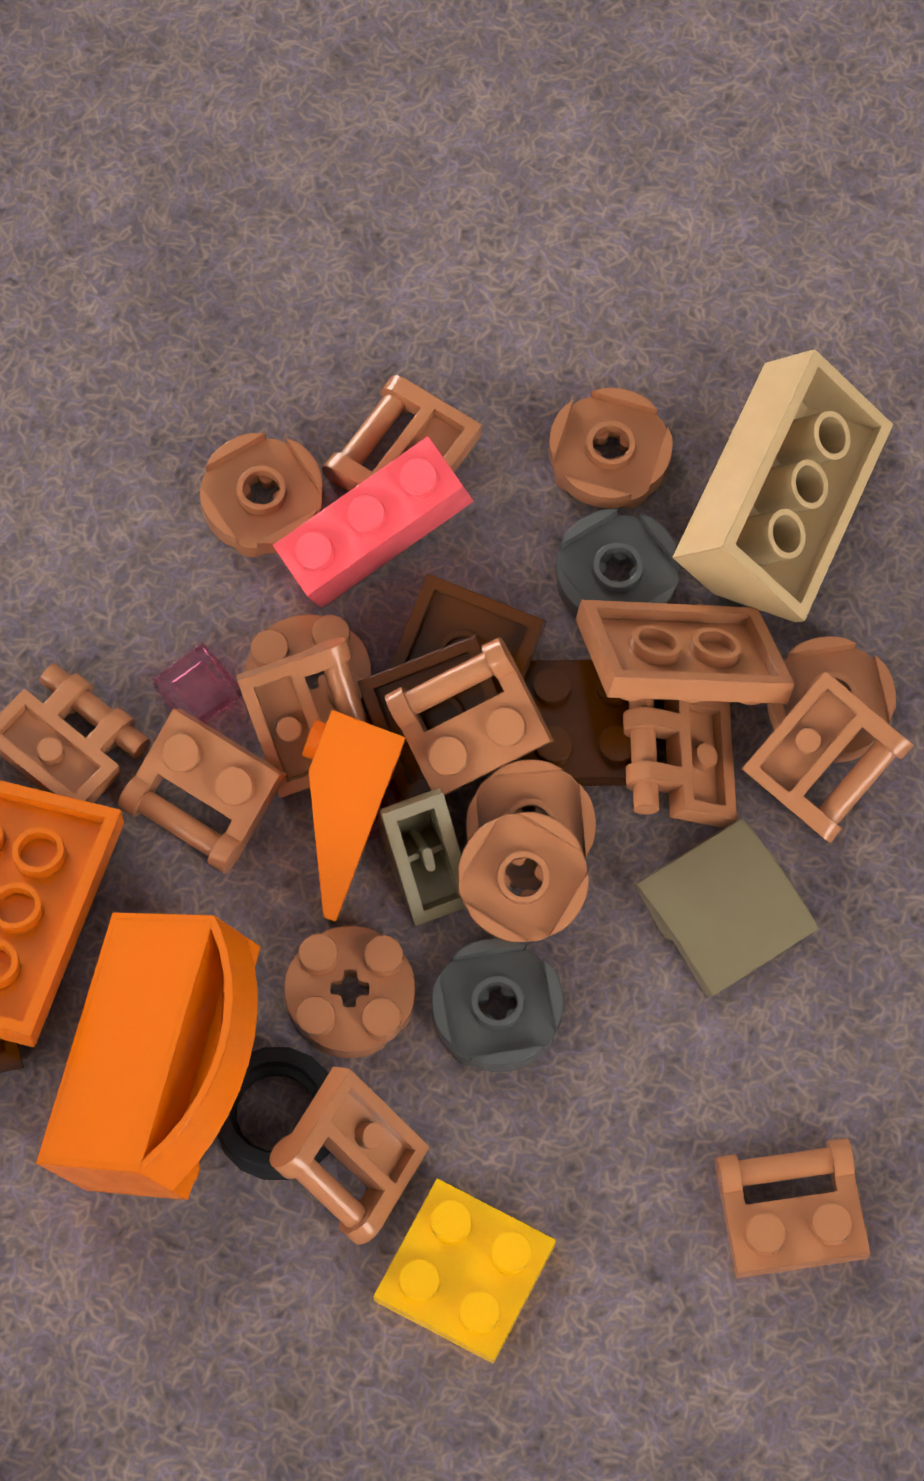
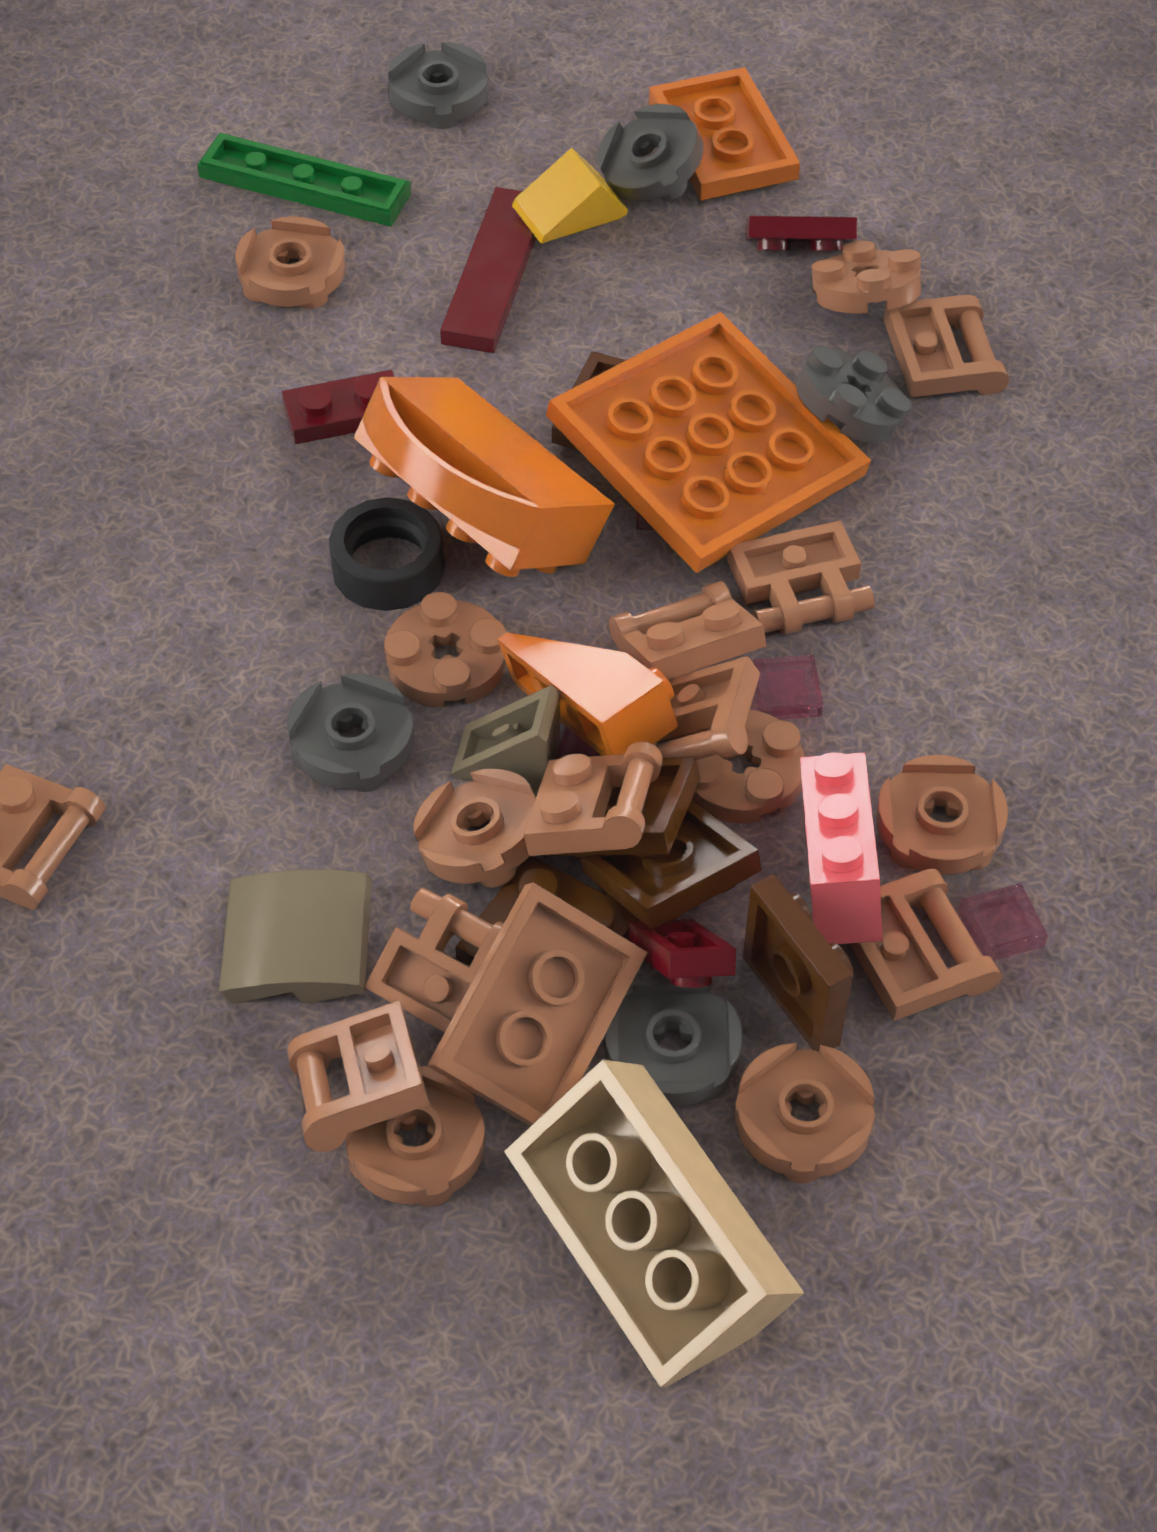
camera: 125 degrees right, 15 degrees down
(103, 1298) = (329, 407): none -> dark red plate
(333, 405) = (1003, 922): none -> clear pink tile
(364, 1139) = (317, 568): nougat plate -> none
(464, 1270) = (172, 610): yellow plate -> none
(505, 502) = (797, 963): none -> reddish brown plate
(556, 581) = (685, 952): none -> dark red plate
(559, 868) = (423, 810): nougat plate -> none

